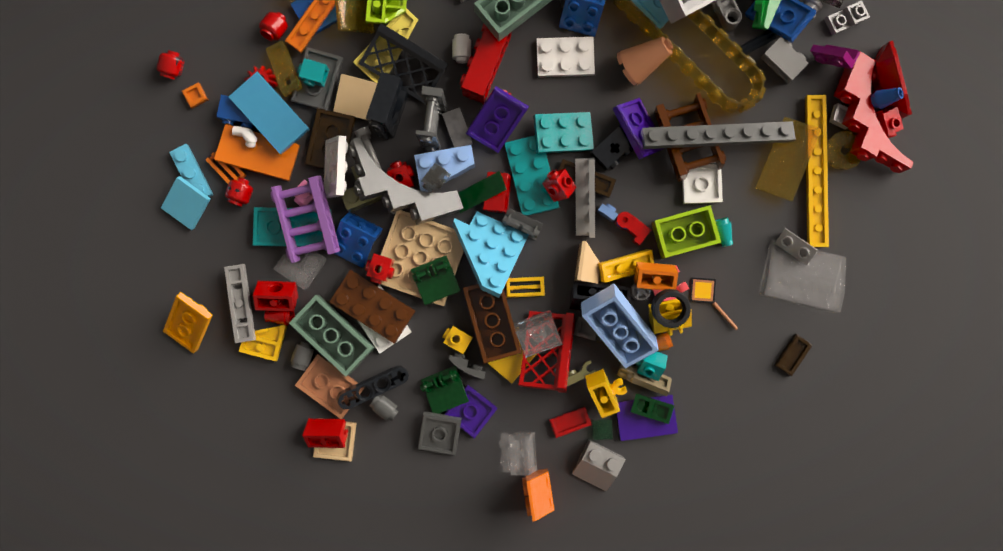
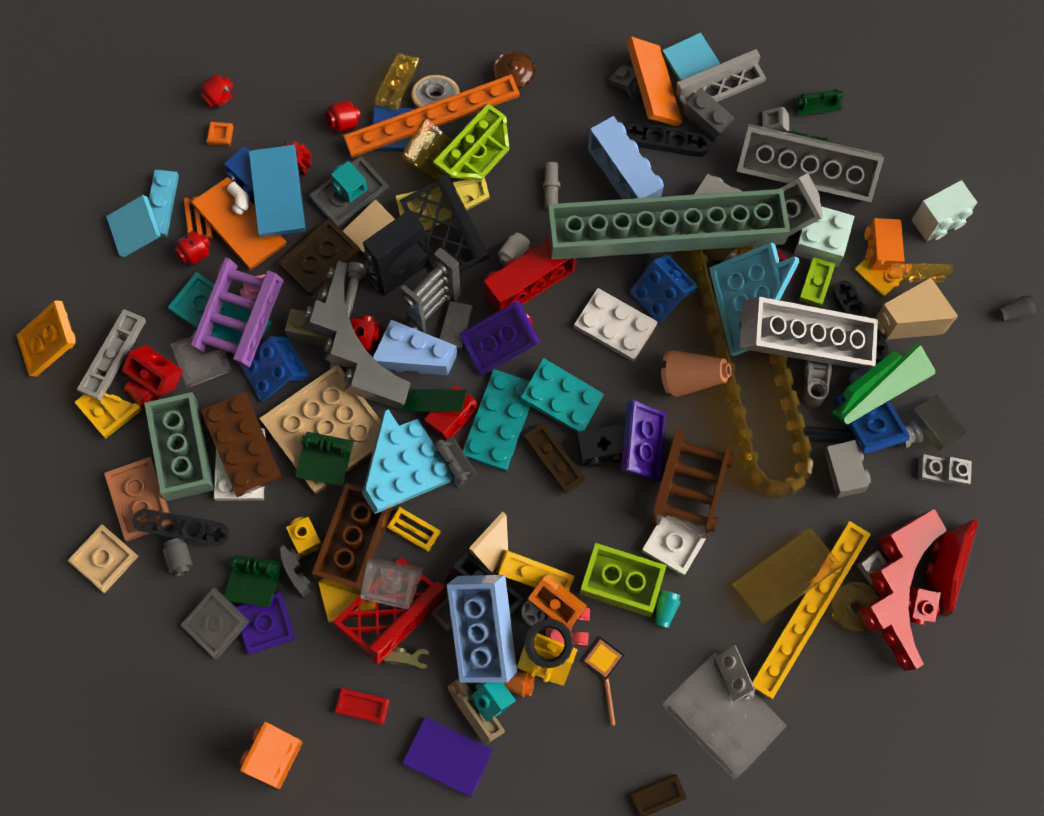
camera: 30 degrees right, 15 degrees down
(283, 68) = (323, 161): clear yellow plate -> none
(302, 355) = (134, 448): dark grey brick -> none
(325, 433) = (97, 542): red hinge -> none
(335, 166) = (303, 280): white plate -> none
(376, 262) = (275, 408): red brick -> none
(435, 178) = (394, 352): clear smoke brick -> none
(518, 453) = (283, 700): clear brick -> none
(559, 185) = (519, 442): red brick -> none
(585, 196) = (539, 475): light grey fence -> none
(598, 465) = (358, 773): light grey slope -> none
(602, 429) = (391, 737): clear green plate -> none
(604, 393) = (418, 693): yellow brick -> none
(608, 212) = (554, 506): medium blue plate -> none
(634, 226) = (568, 531): red leg -> none
(652, 408) = (460, 749): dark green slope -> none
(717, 135) = (722, 497): dark grey plate -> none
(835, 55) = (903, 497): magenta bracket -> none
(885, 97) = (931, 572): blue cone -> none

